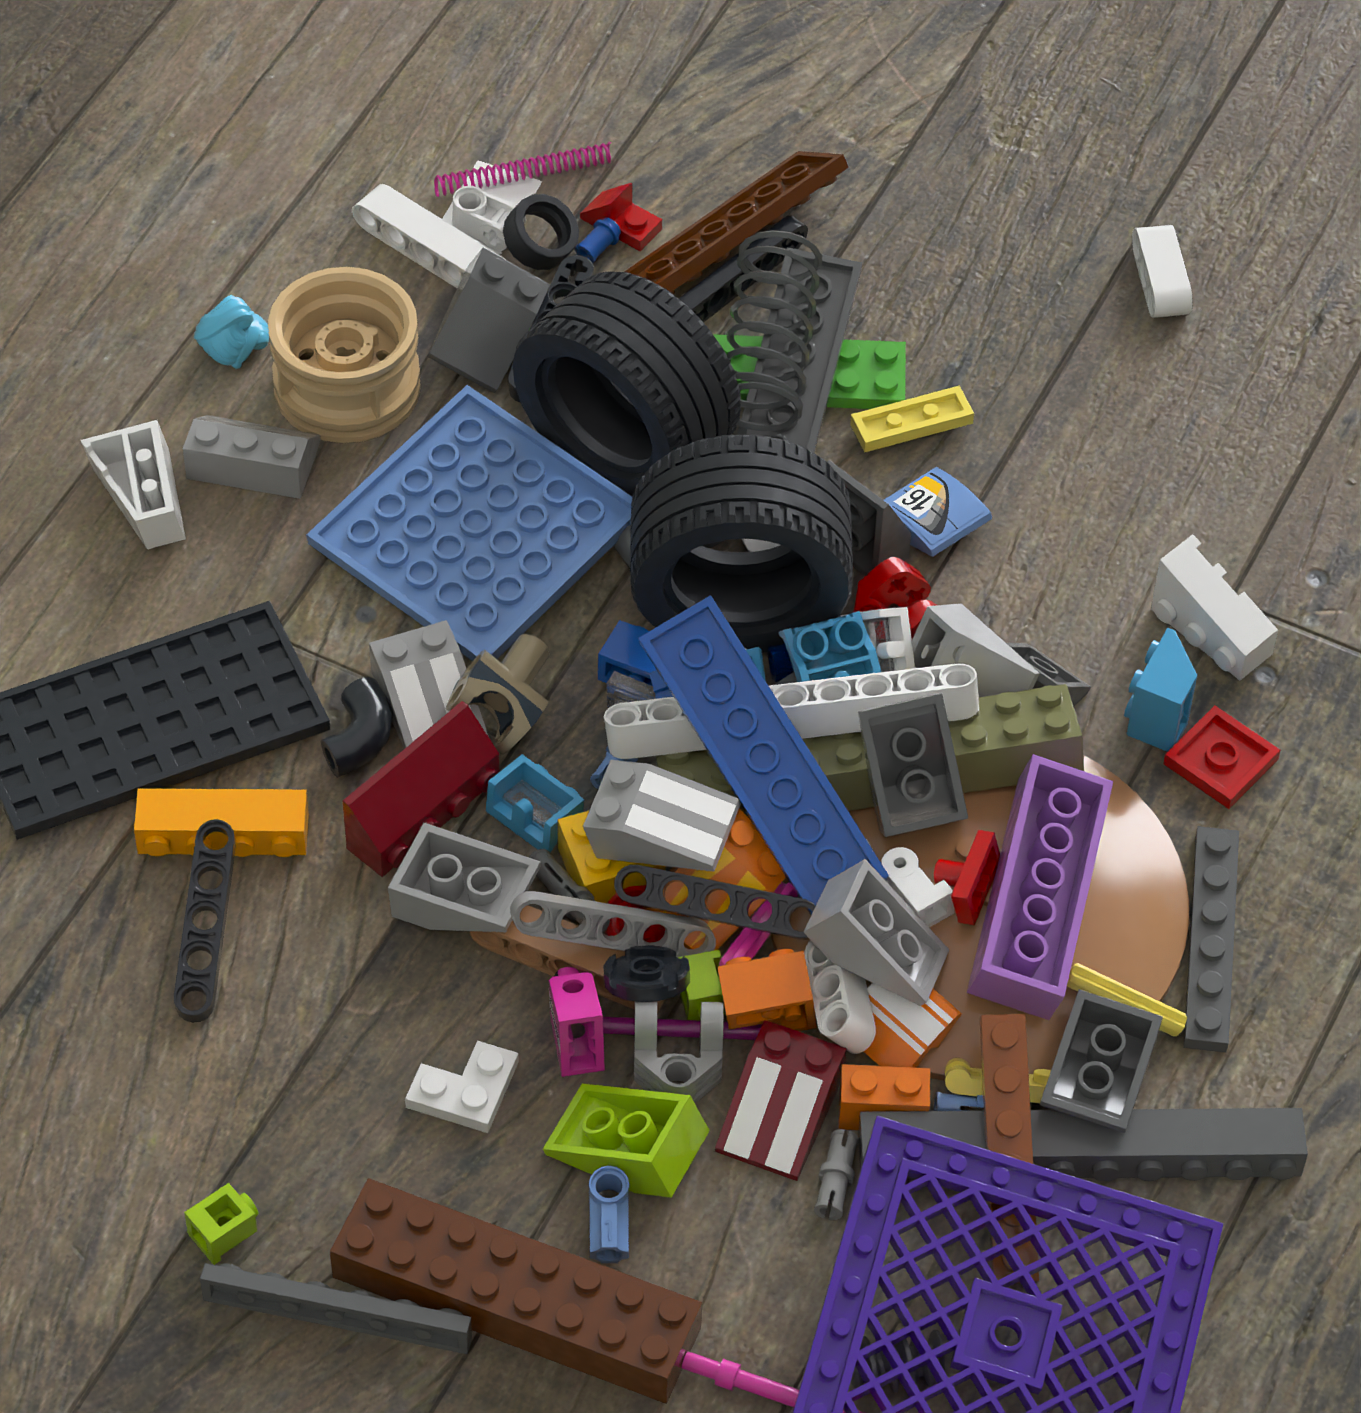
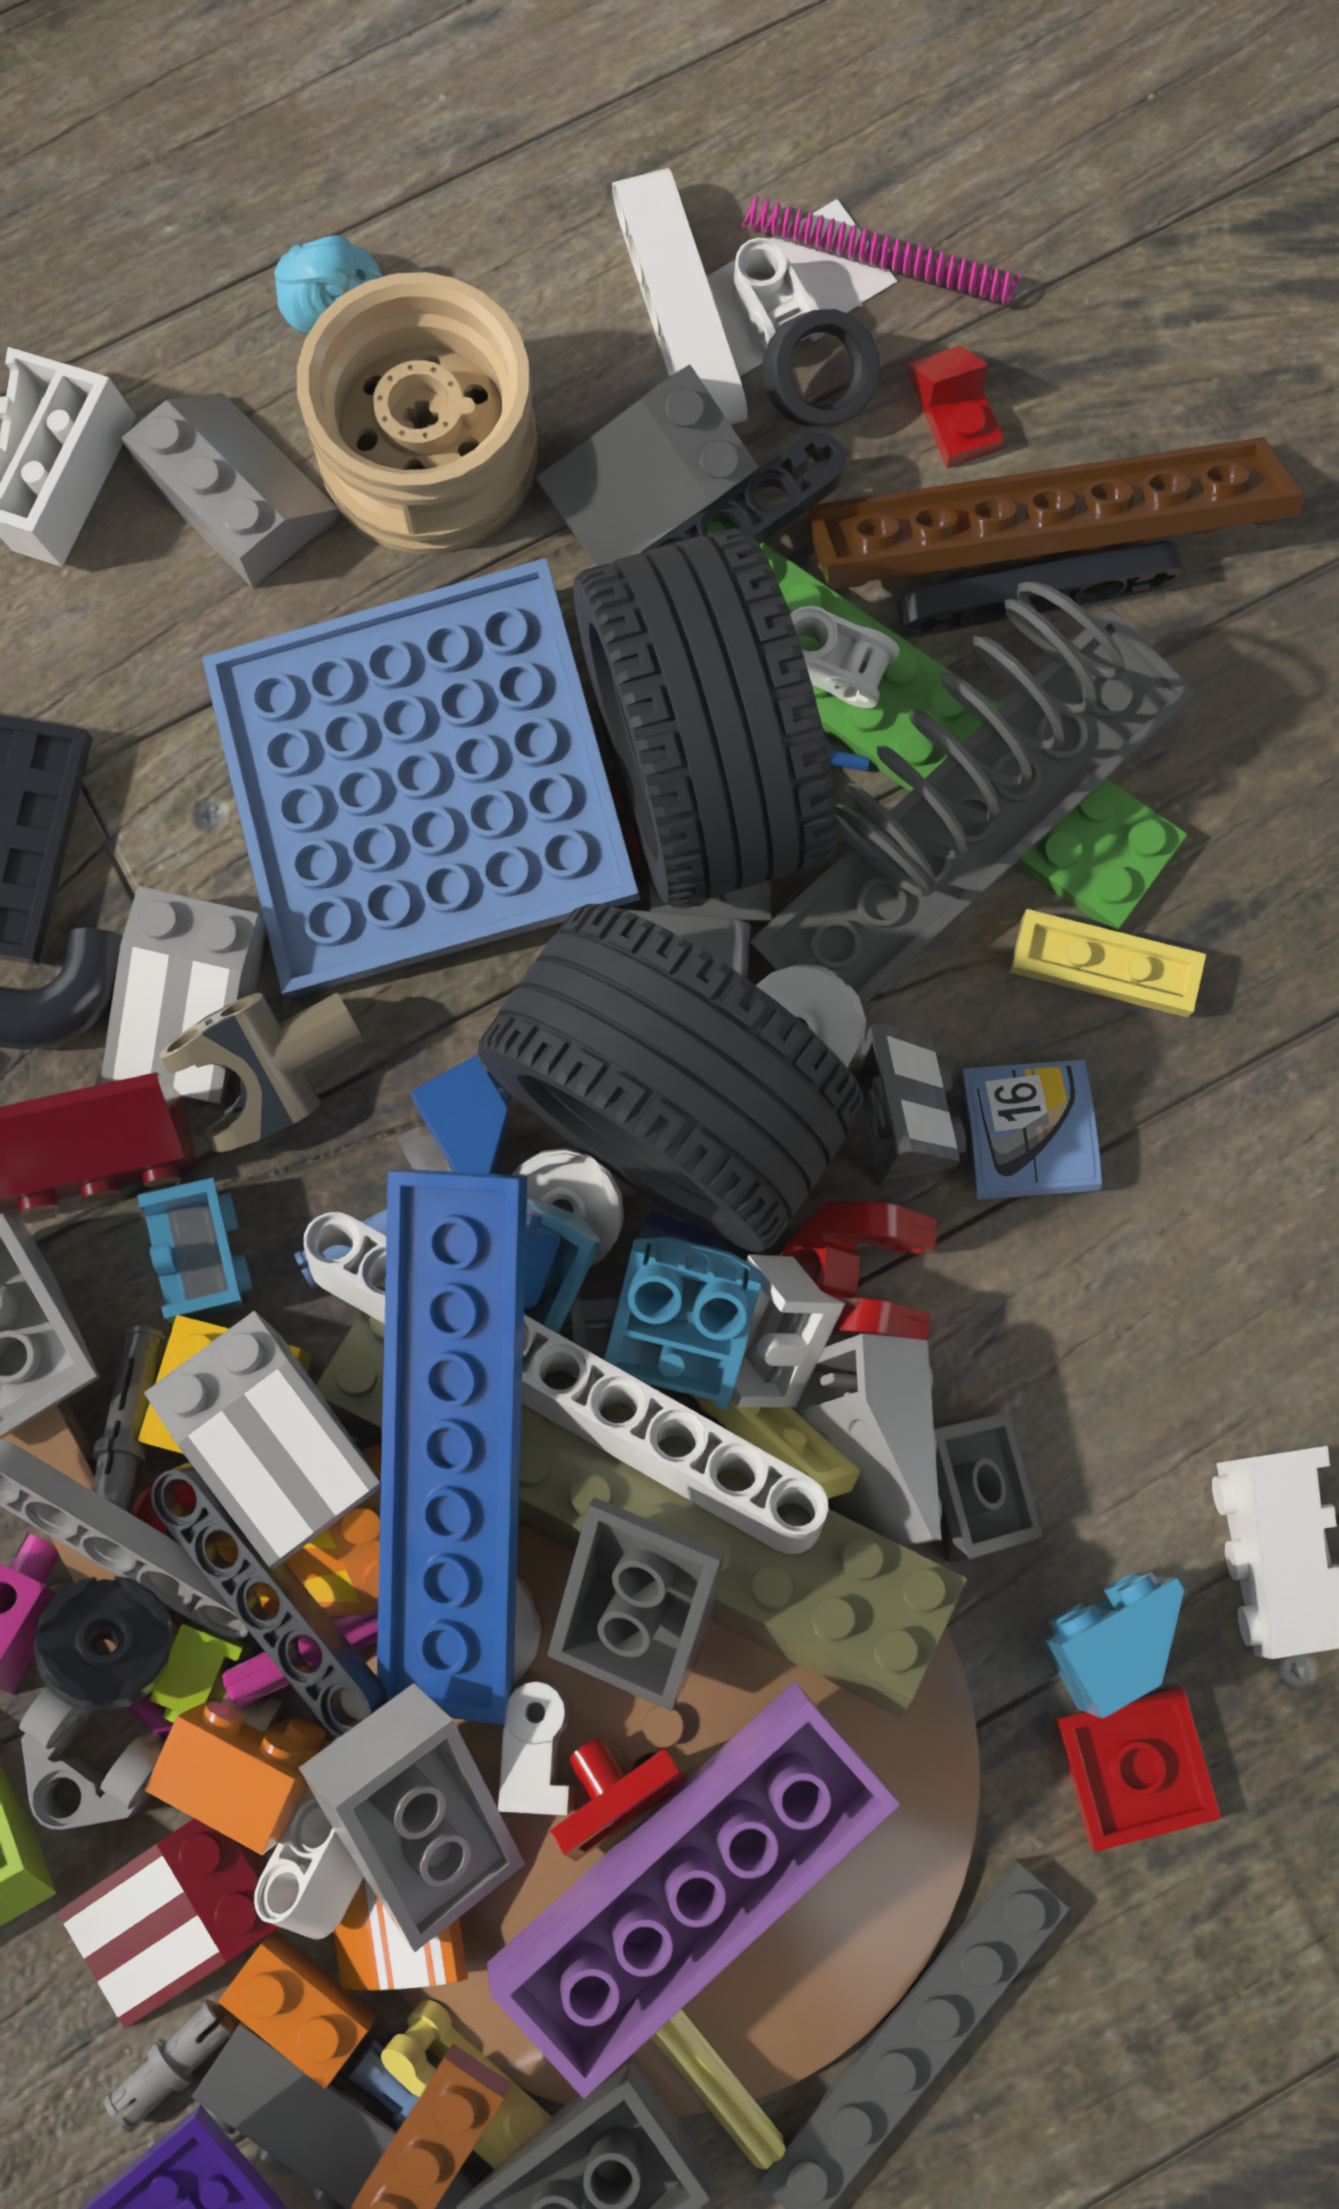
camera: 35 degrees right, 25 degrees up
(605, 233) = (896, 422): blue pin -> none

